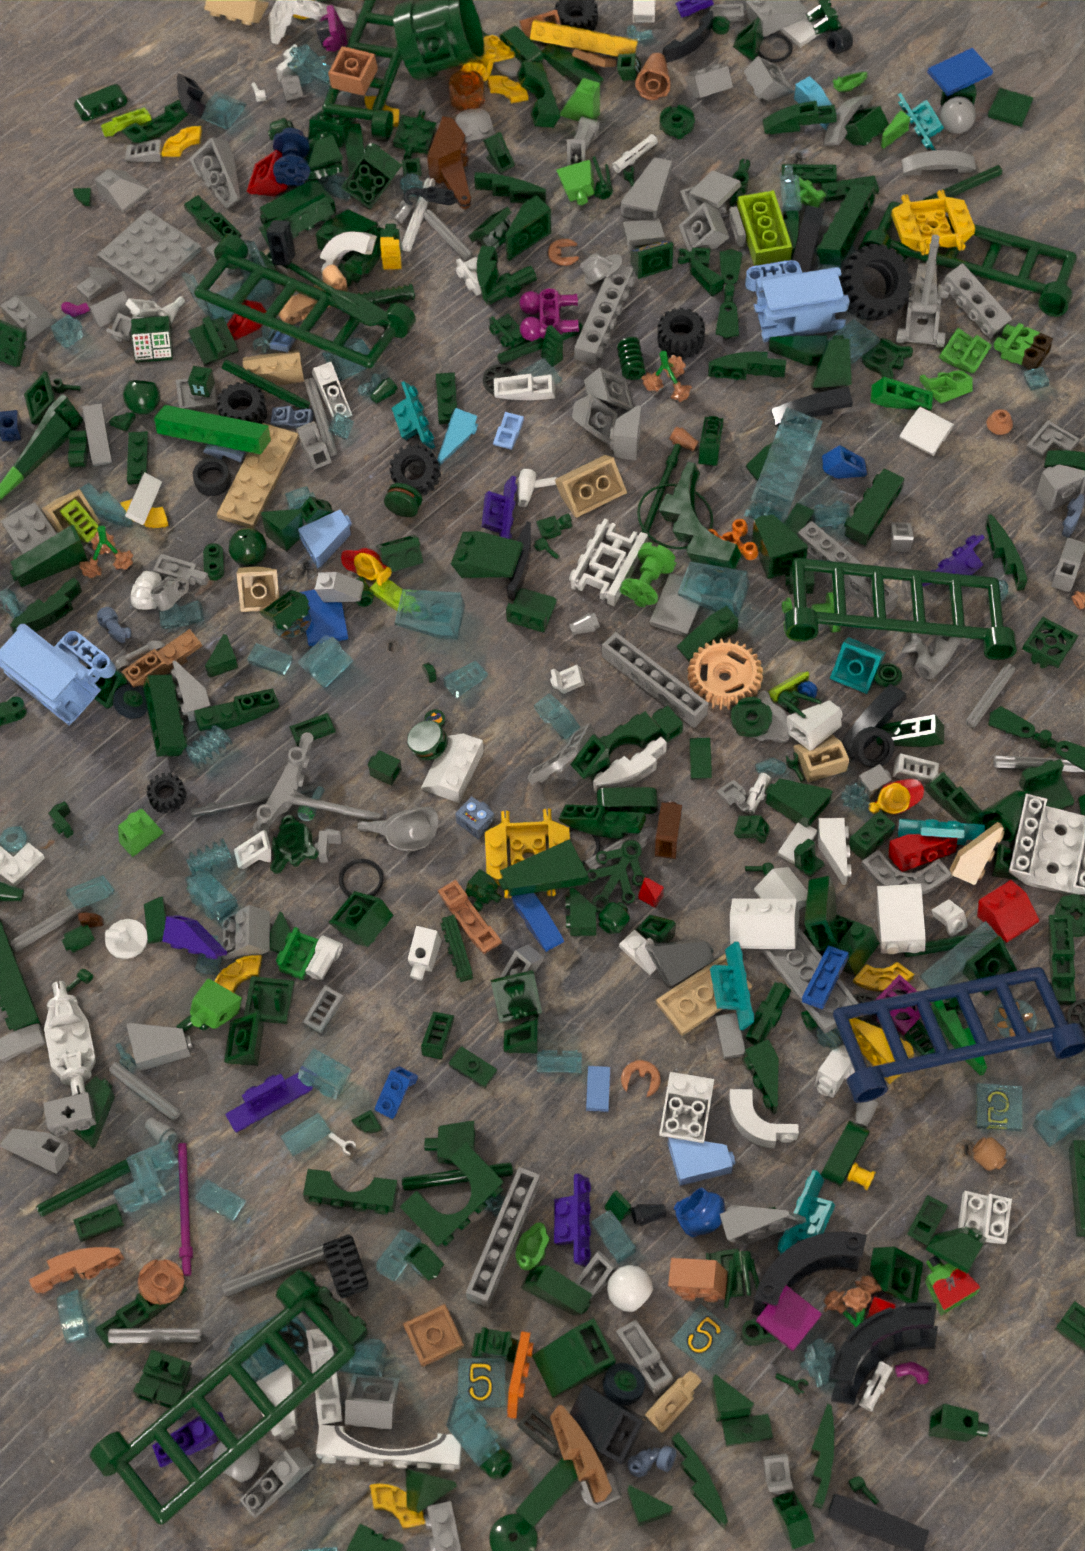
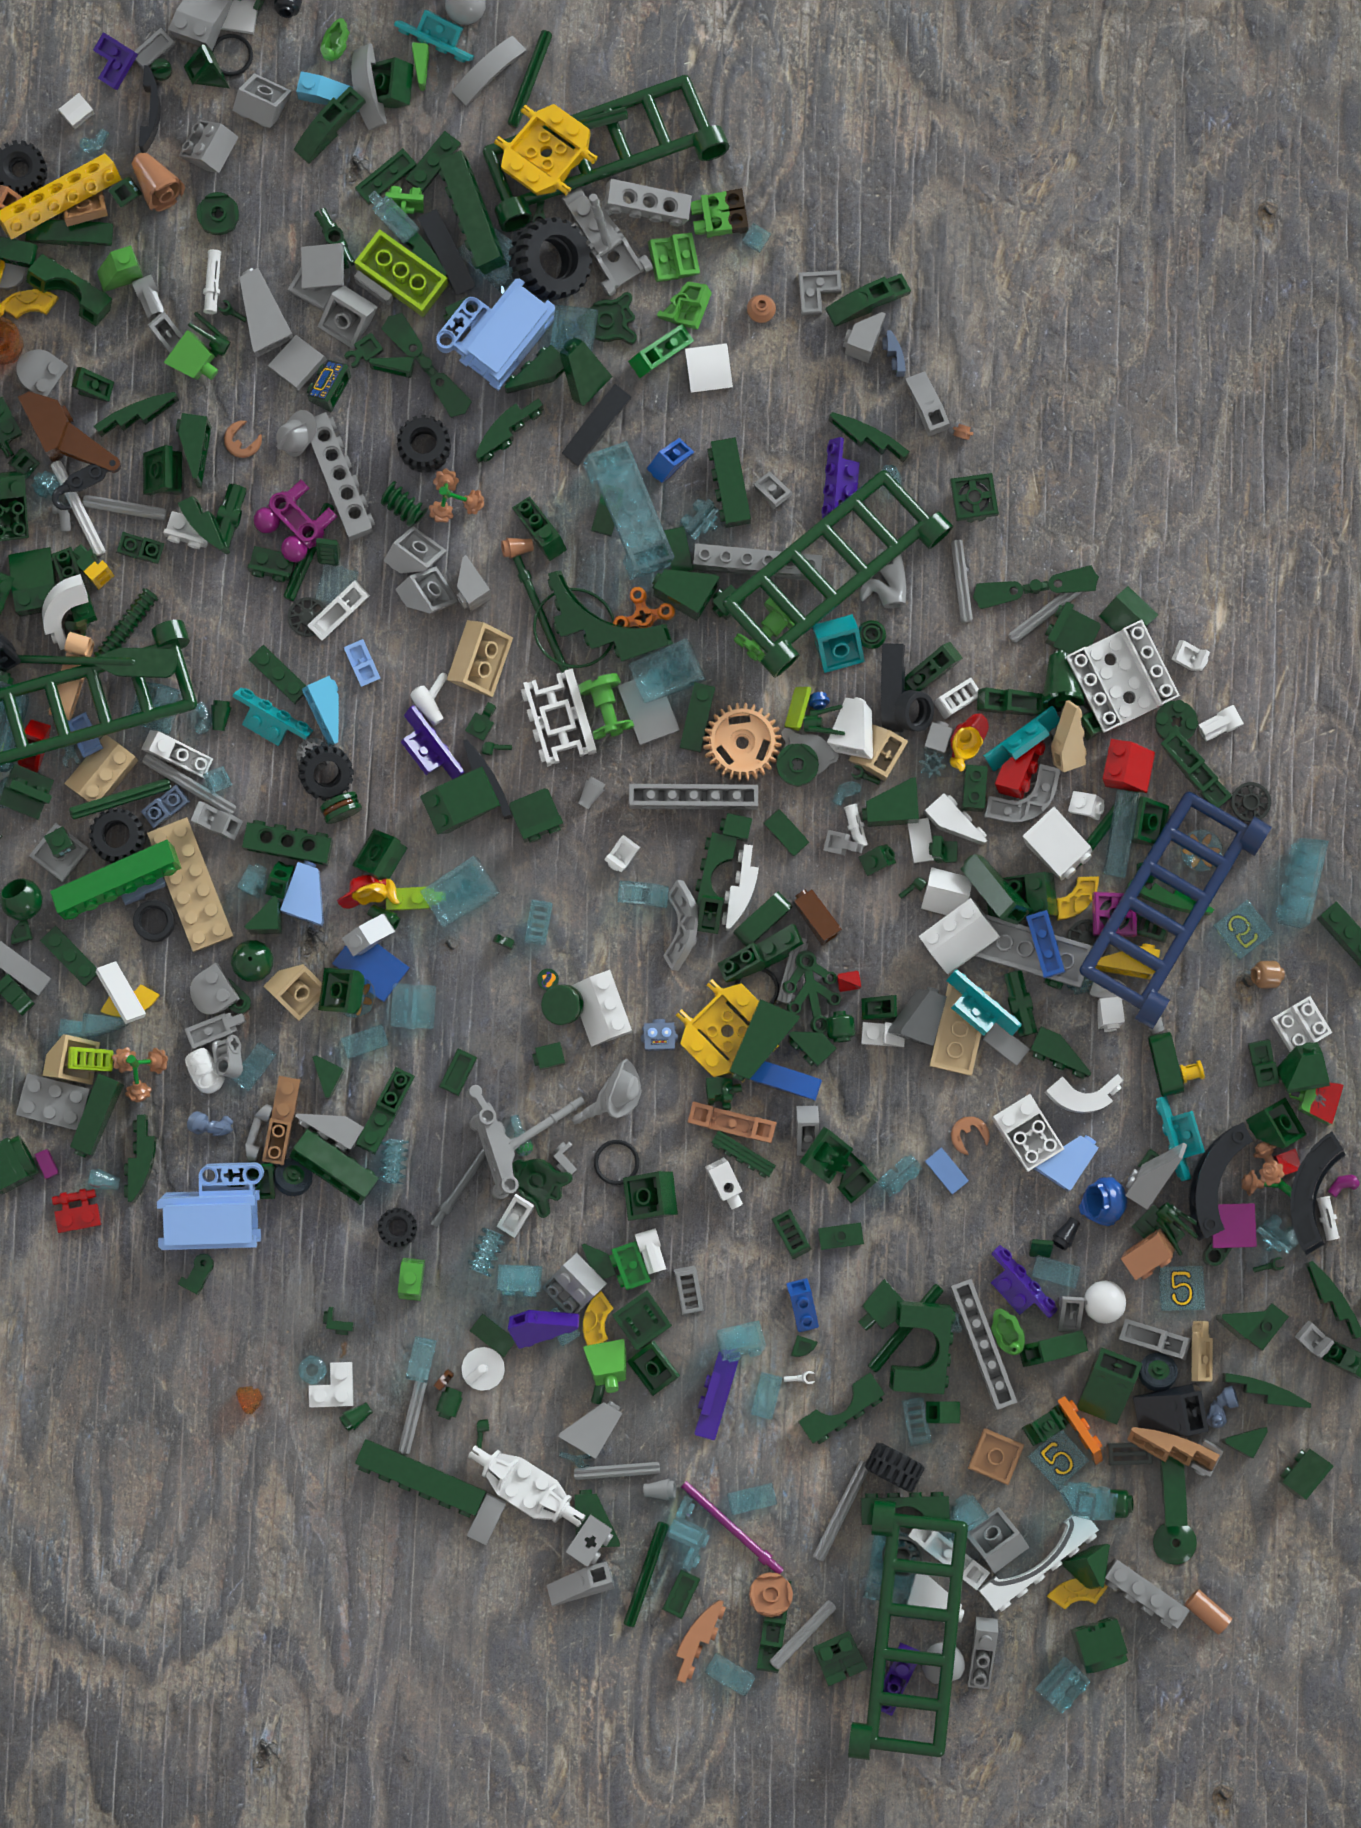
camera: 50 degrees left, 20 degrees up
(203, 544) = (212, 991): none -> light grey slope
(337, 487) = (253, 843): none -> dark green brick
(433, 263) = (140, 548): none -> dark green slope

